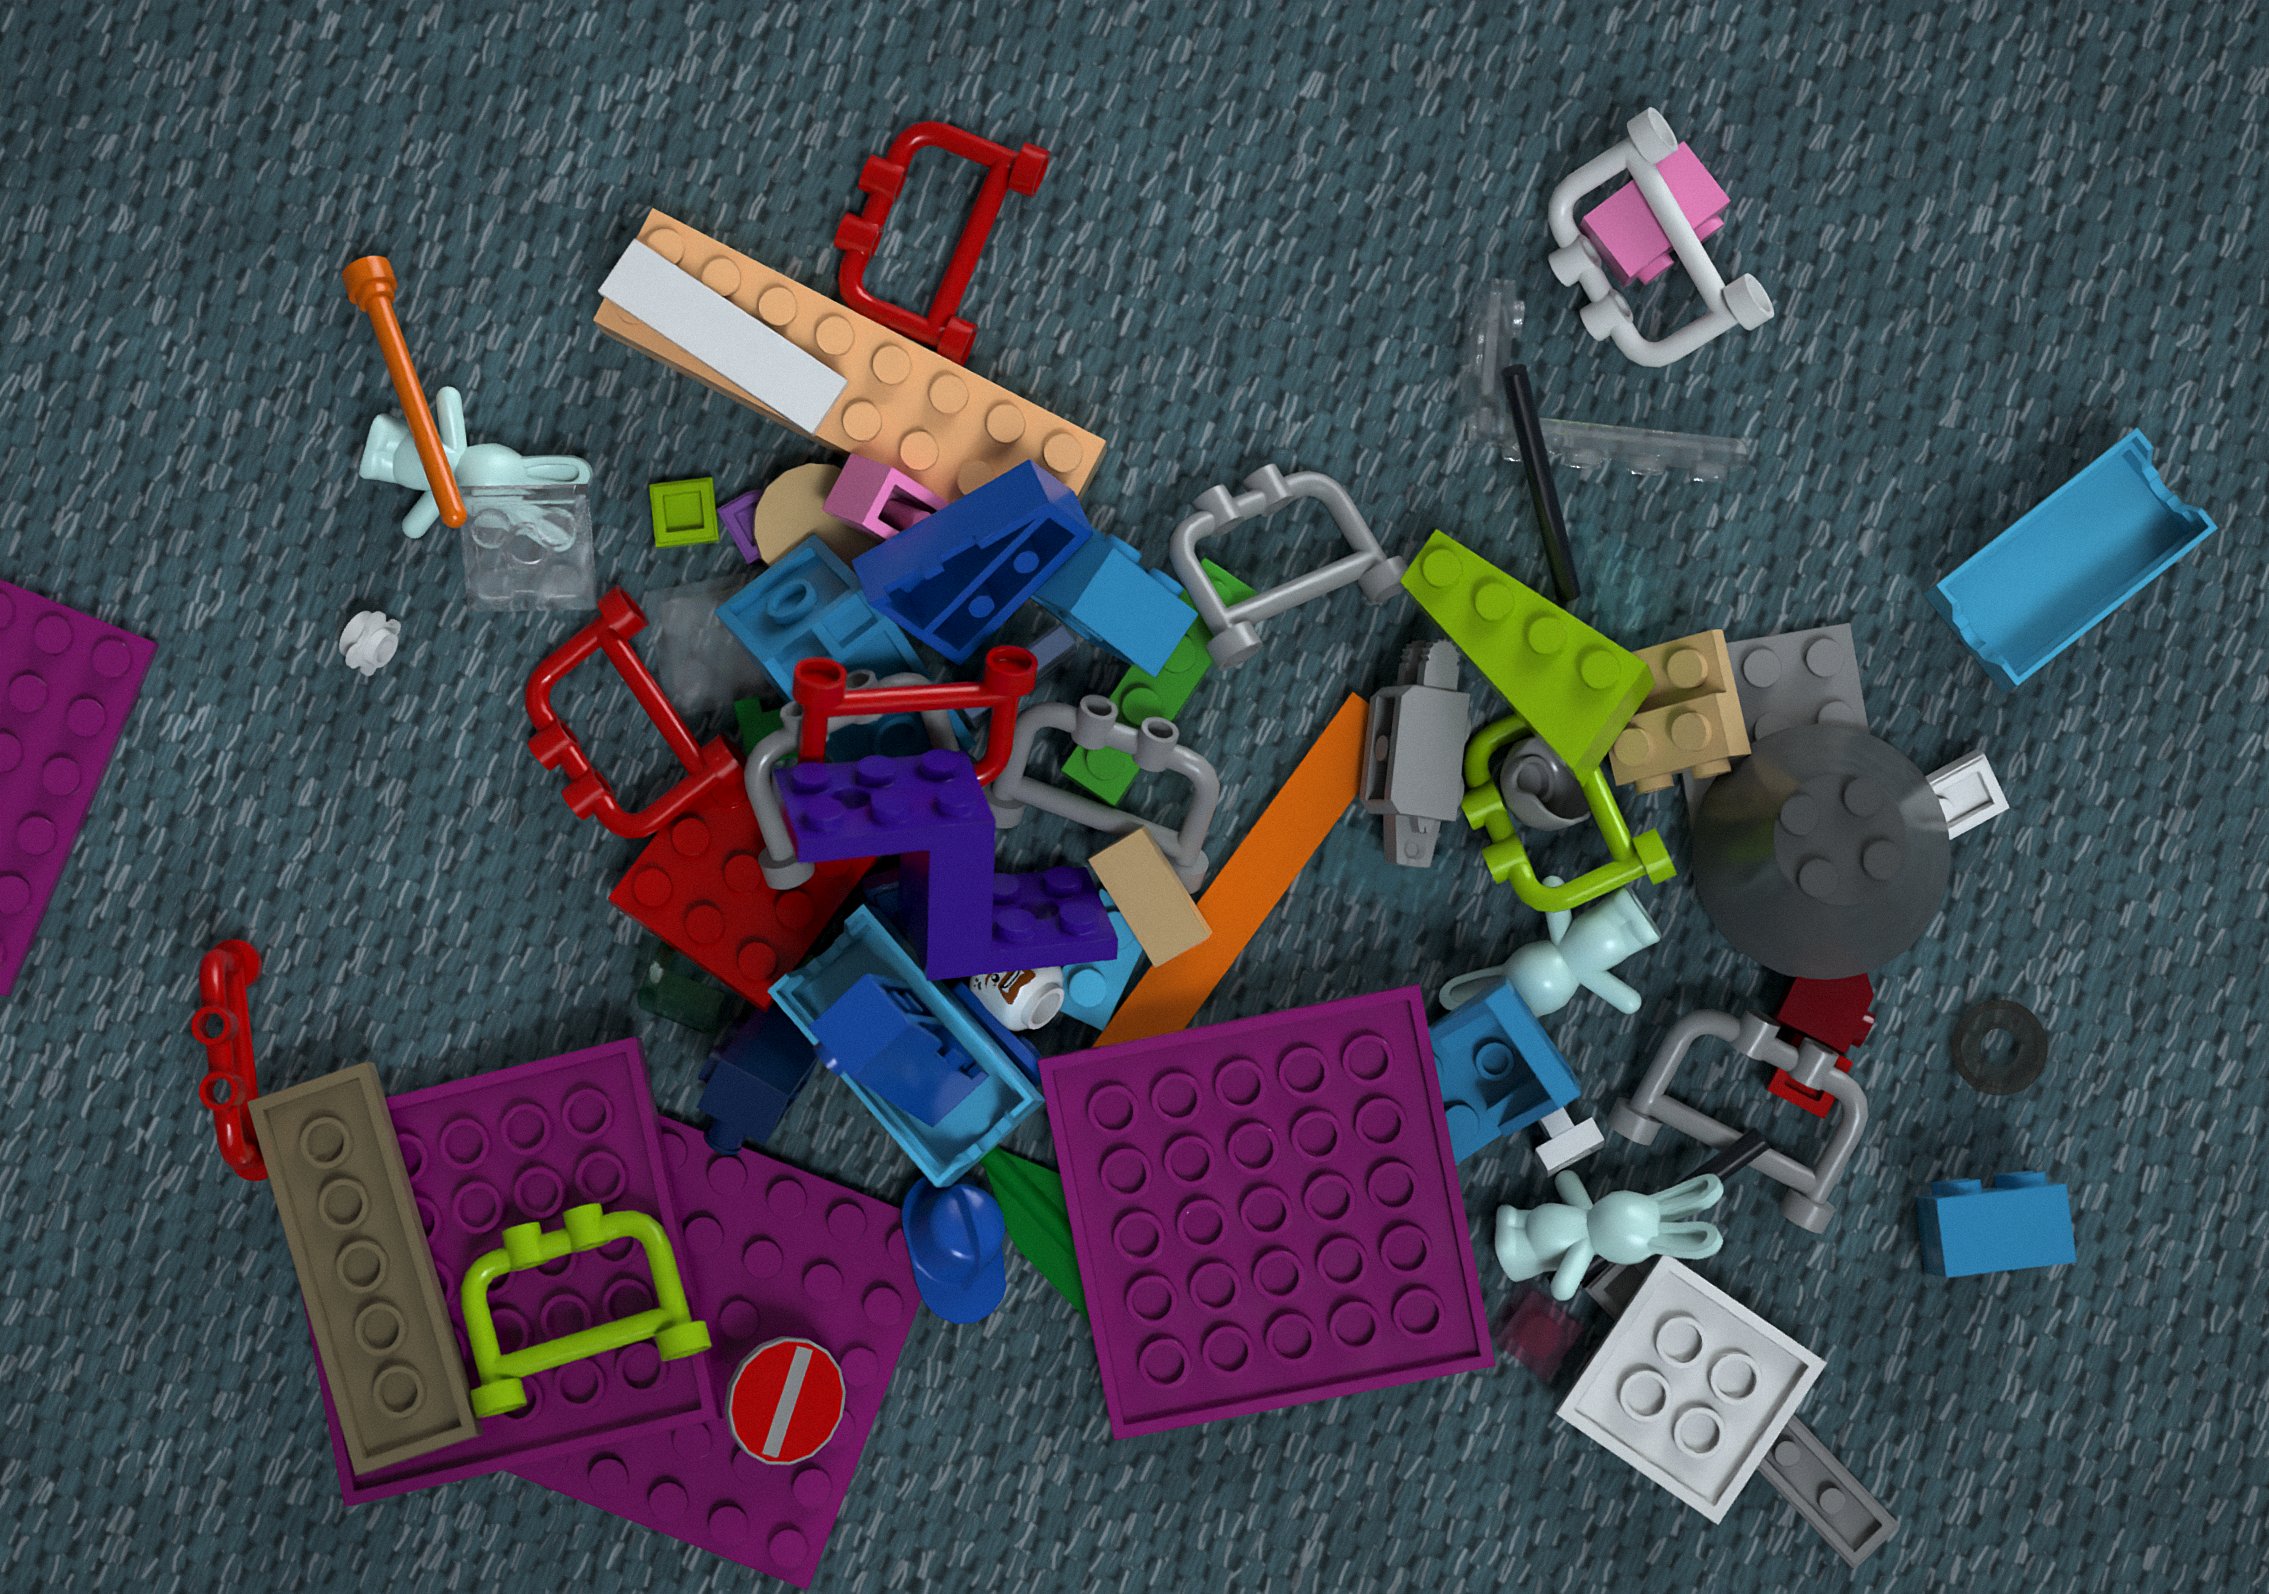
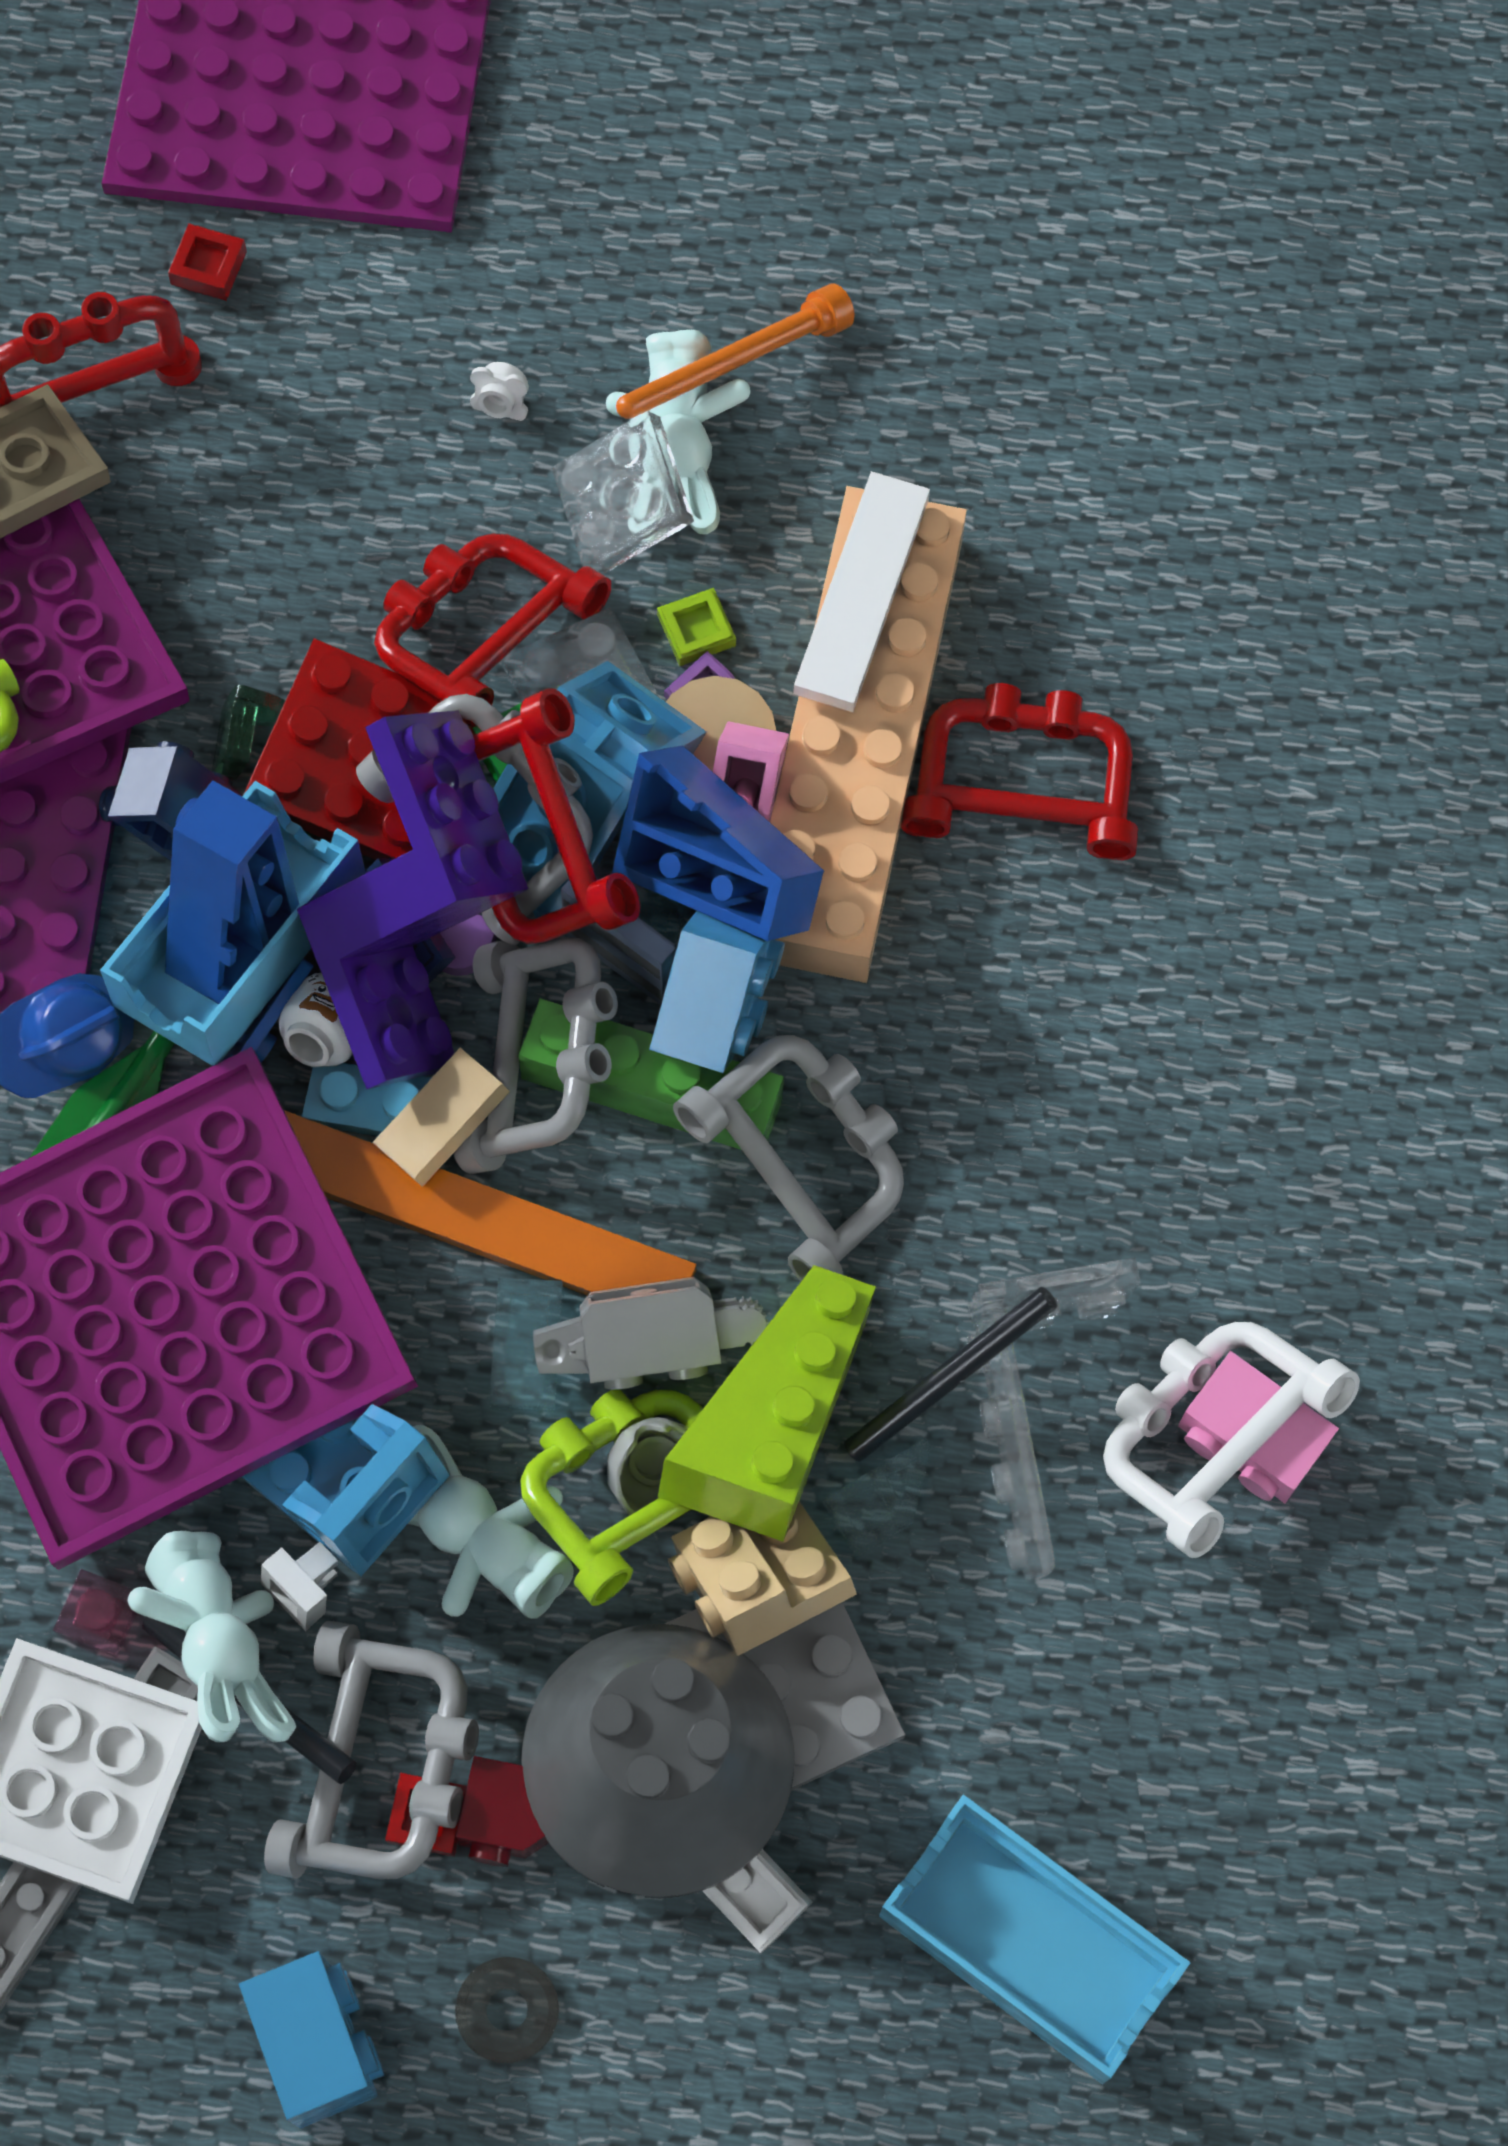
camera: 70 degrees right, 15 degrees down
(131, 906) = (207, 262): none -> red plate

